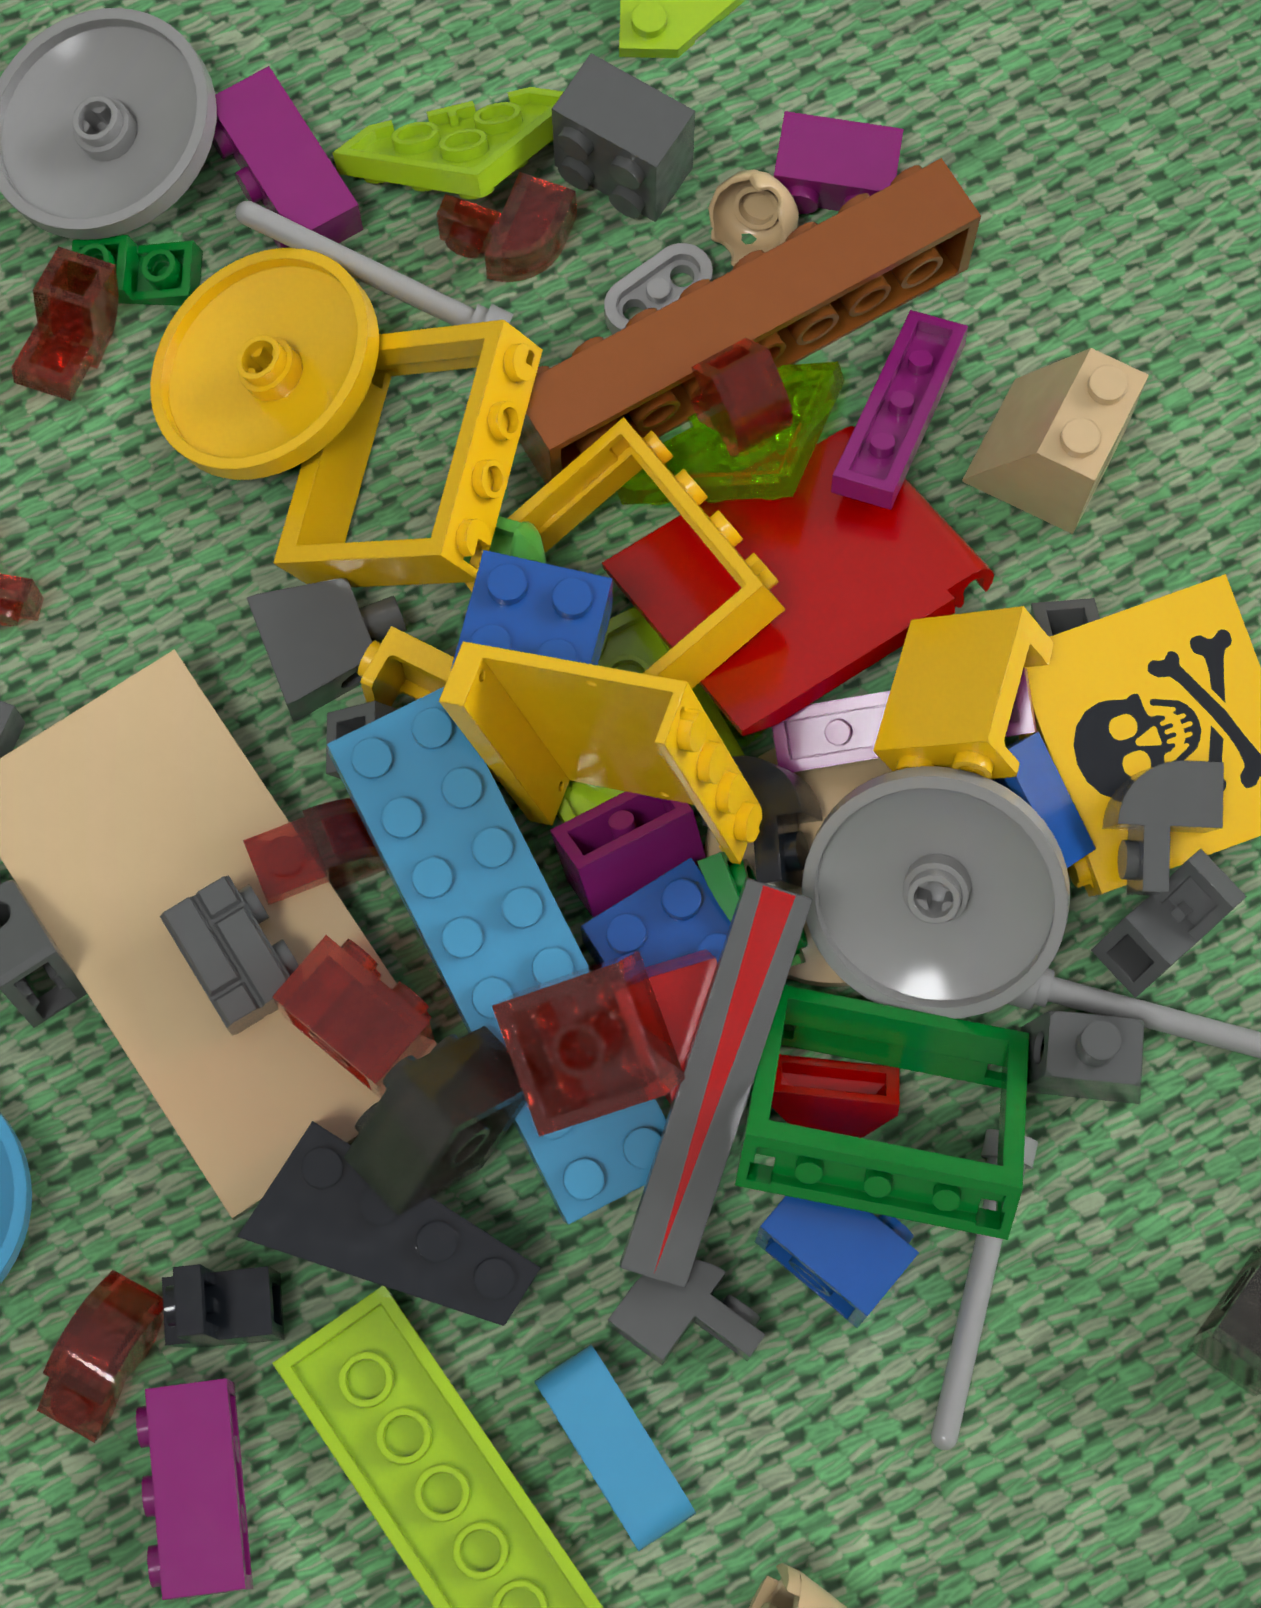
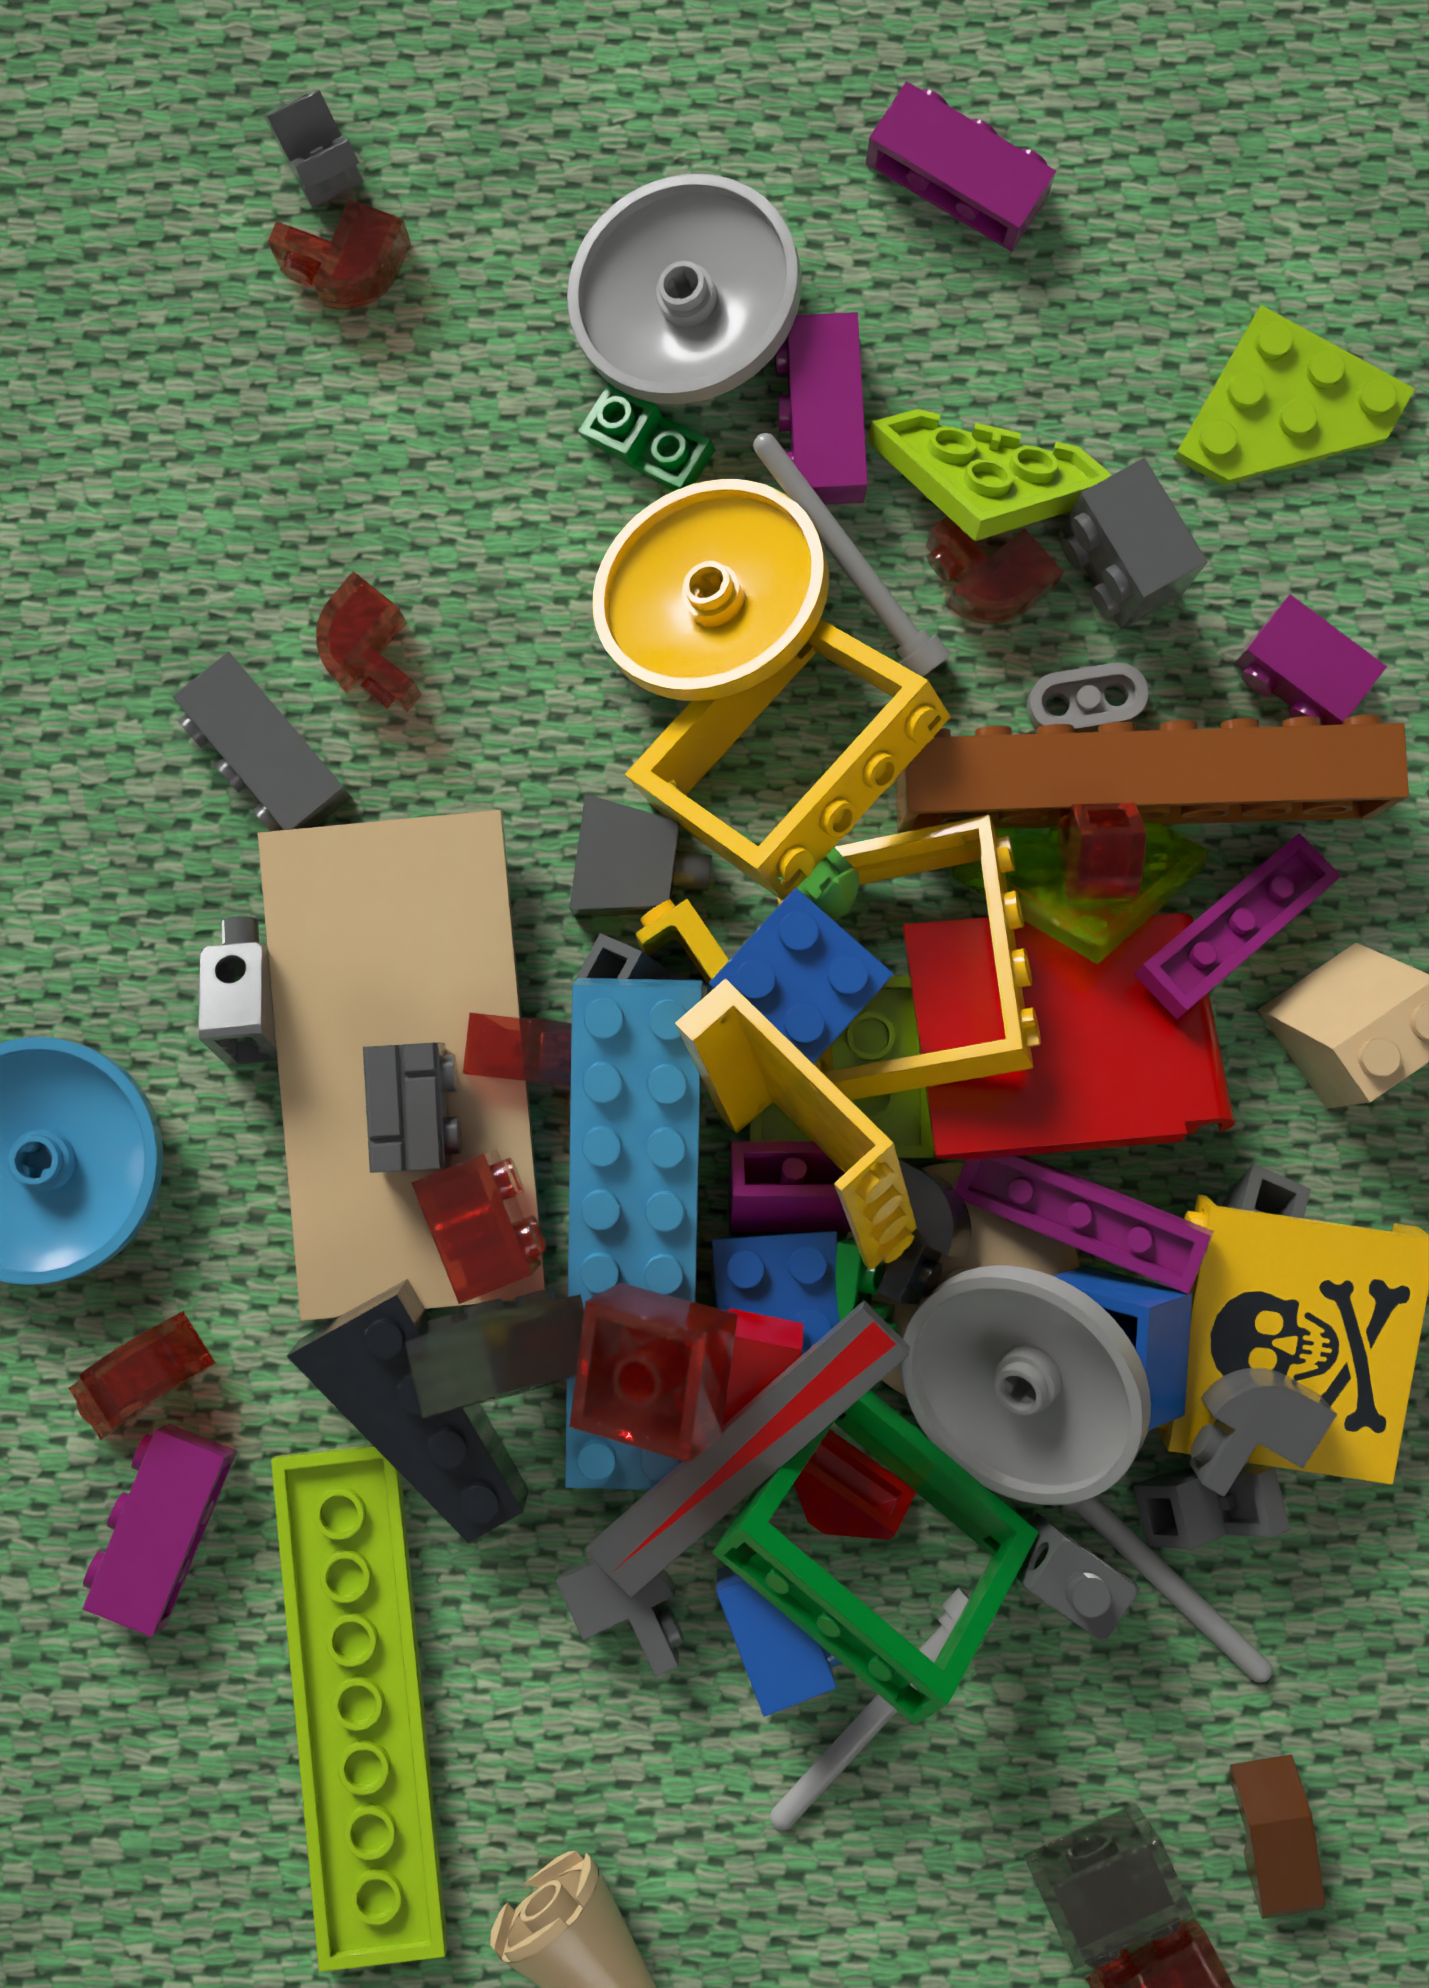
camera: 30 degrees right, 10 degrees up
(74, 323) = (570, 462): clear red brick -> none
(222, 1306) = (253, 1393): black brick -> none
(615, 1447) = (507, 1680): dark azure beam -> none
(753, 205) = (1219, 669): tan hair -> none
(959, 691) = (1140, 1231): yellow panel -> none

